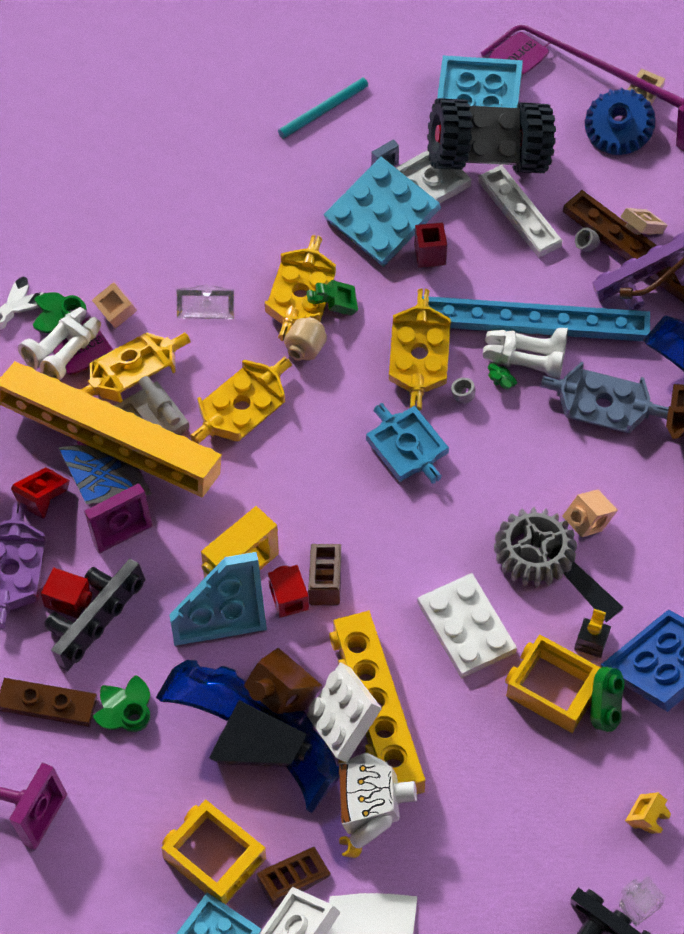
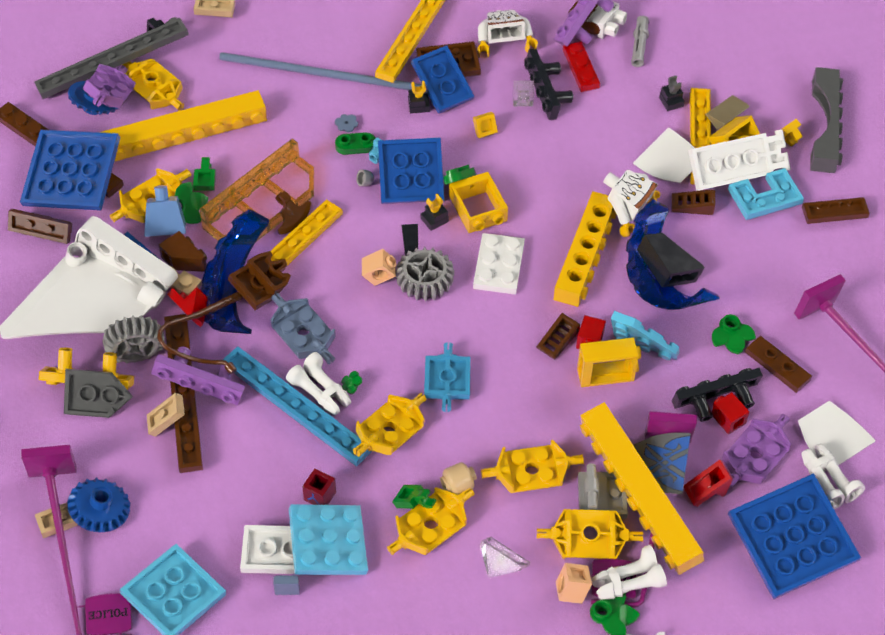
camera: 145 degrees left, 5 degrees down
(236, 875) = (726, 215): yellow window -> none
(281, 684) = (636, 281): reddish brown torso -> none
(343, 712) = (615, 235): white plate -> none
(459, 390) = (382, 383): light grey hinge -> none
(491, 135) = (234, 533): black plate -> none
(520, 211) = (229, 490): white tile -> none
(584, 243) = (212, 438): light grey hinge -> none

